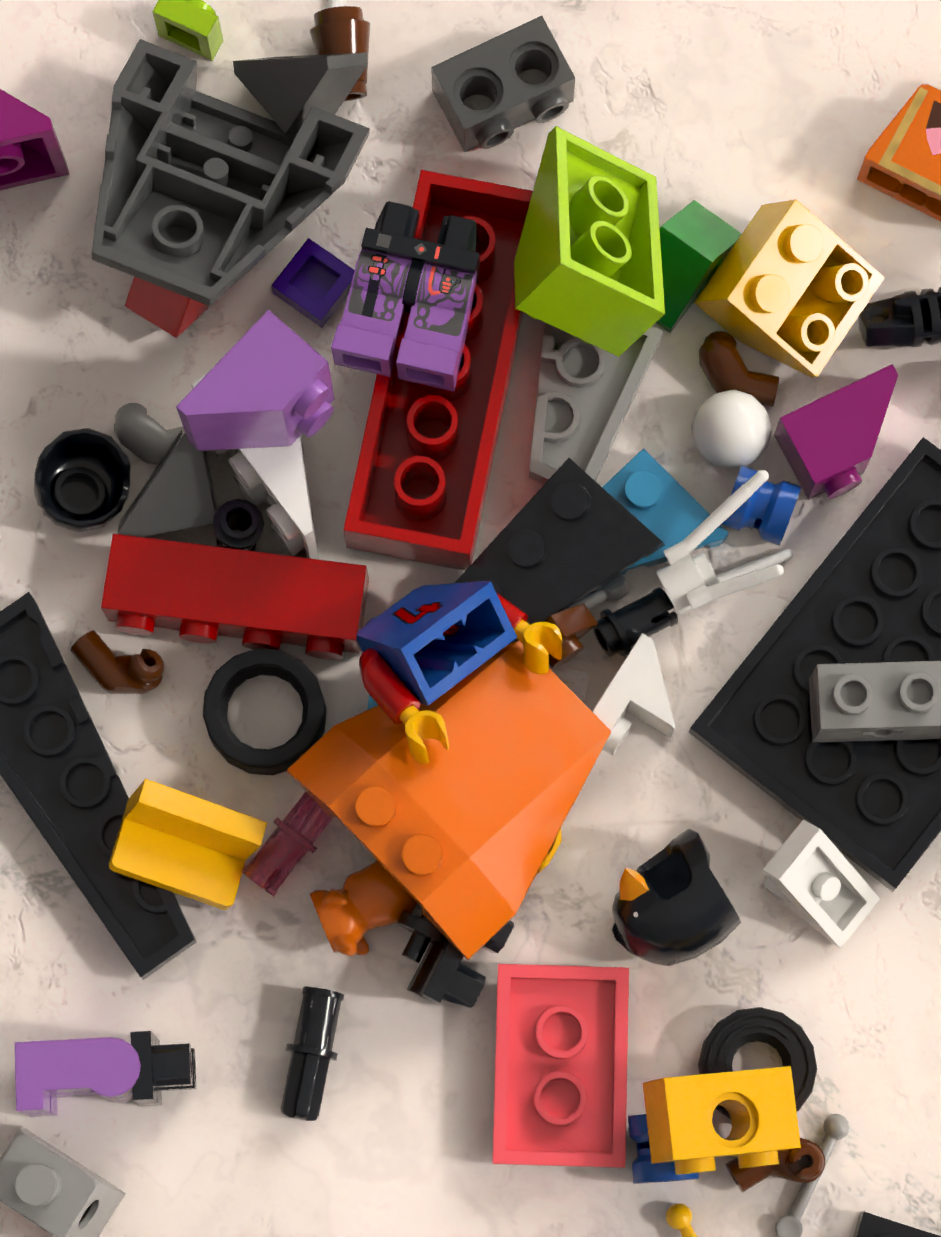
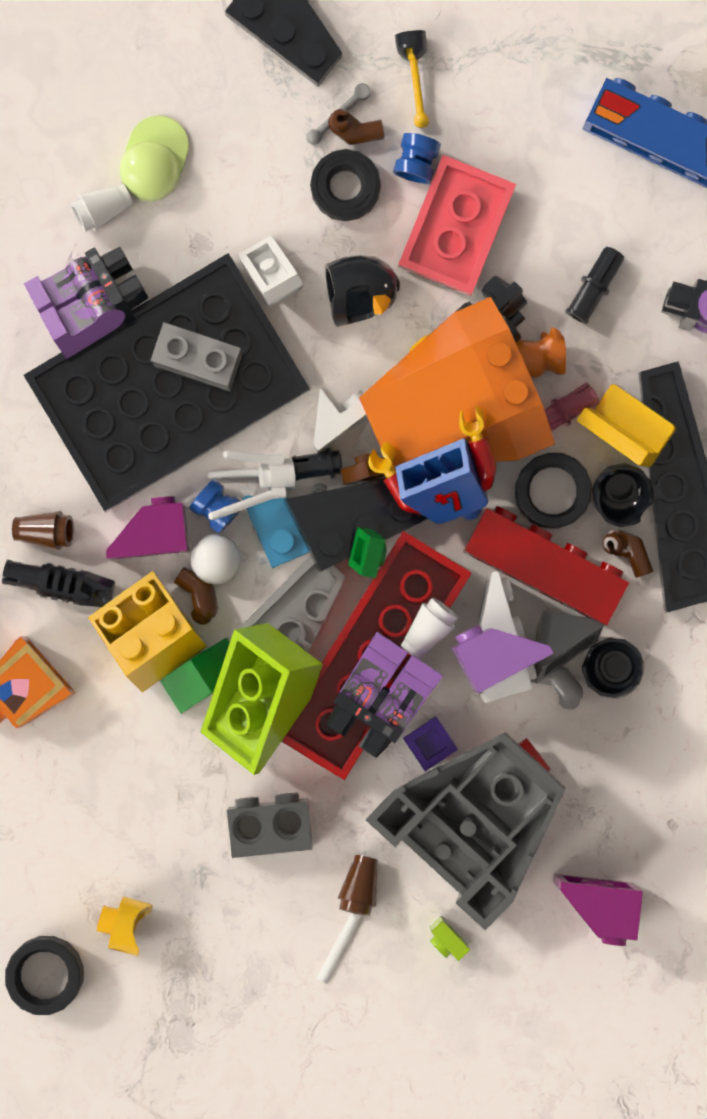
camera: 160 degrees left, 10 degrees up
(157, 738) = (622, 494): none -> black hair
(239, 516) = (522, 610): black pin -> none
(294, 84) = (396, 872): dark grey slope -> none
(377, 420) = (429, 627): none -> white cone
(510, 501) = (367, 552): none -> green plate
(760, 1112) = (398, 170): yellow brick -> none

